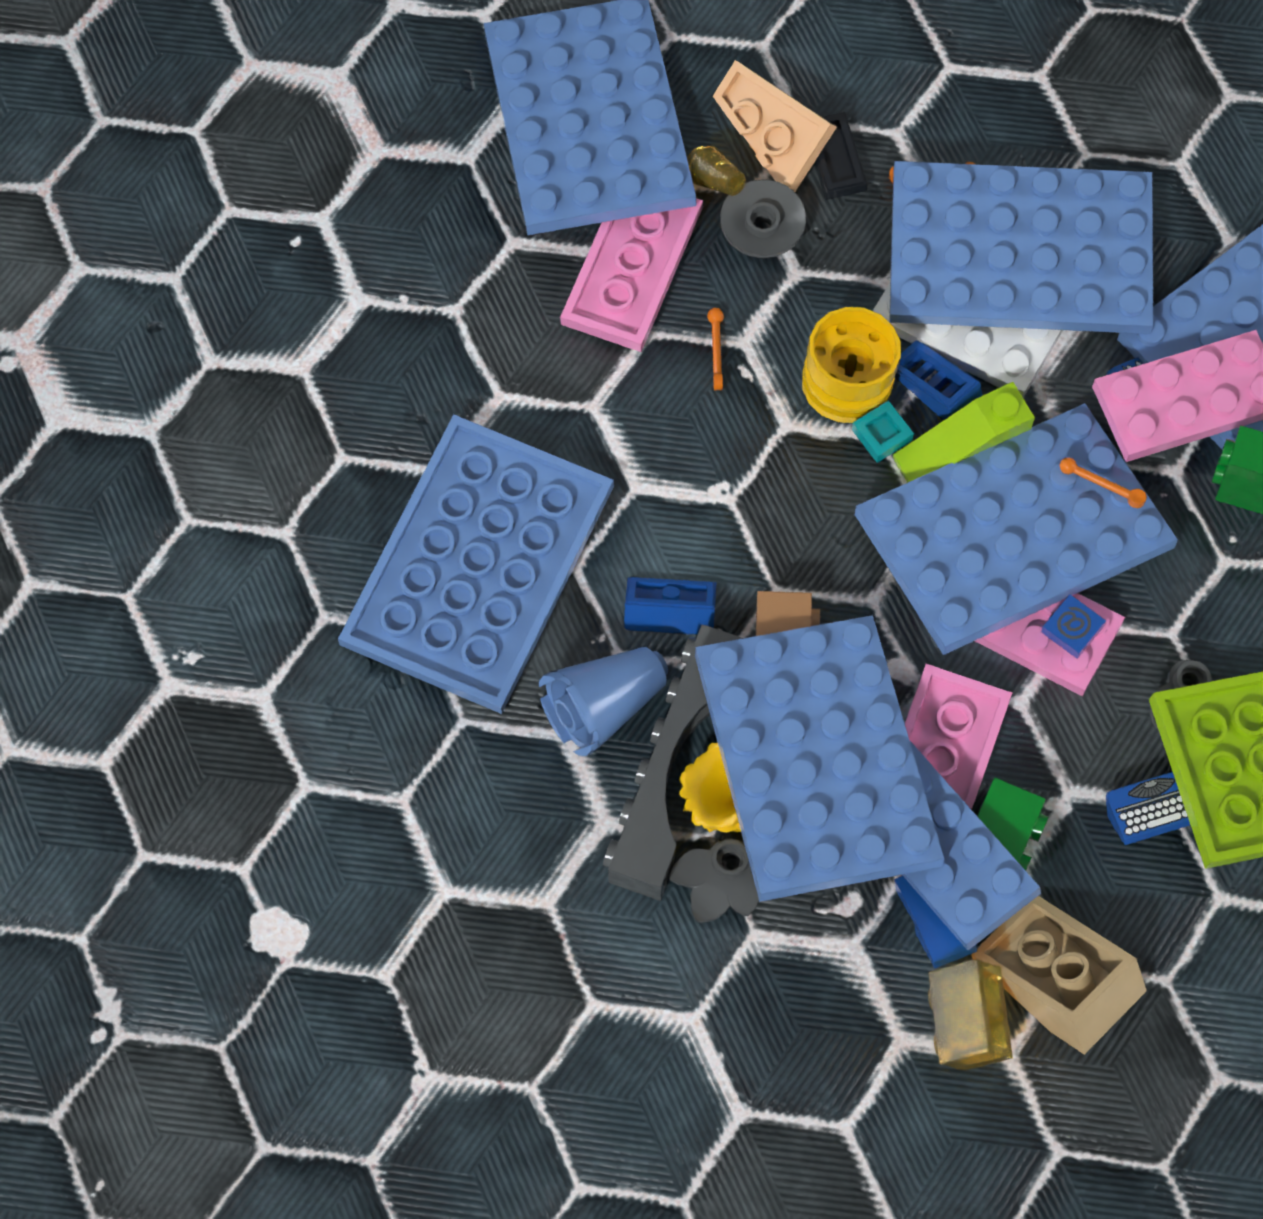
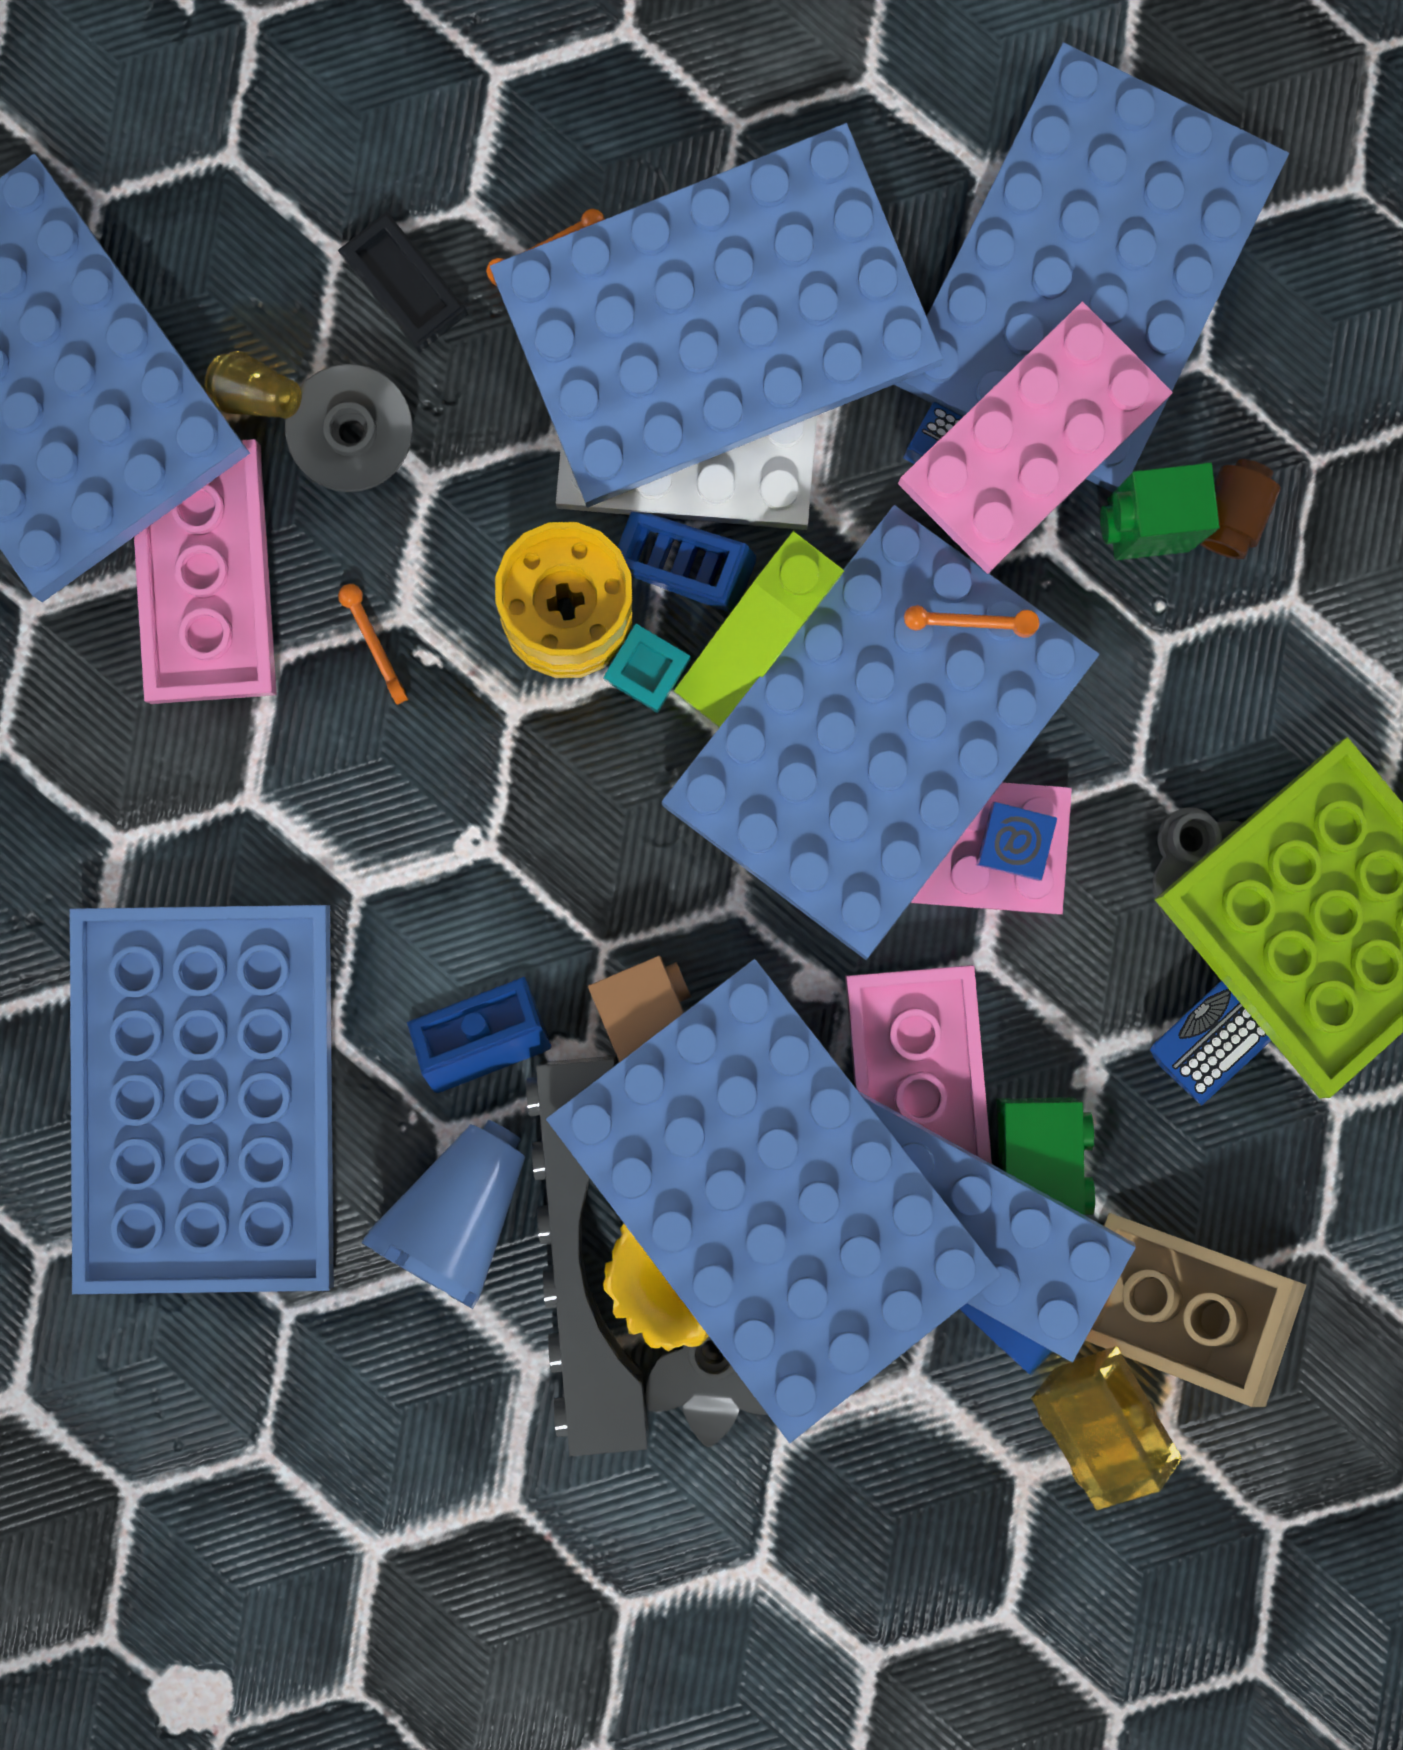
camera: 25 degrees left, 20 degrees up
(774, 124) = (300, 274): light nougat wing -> none

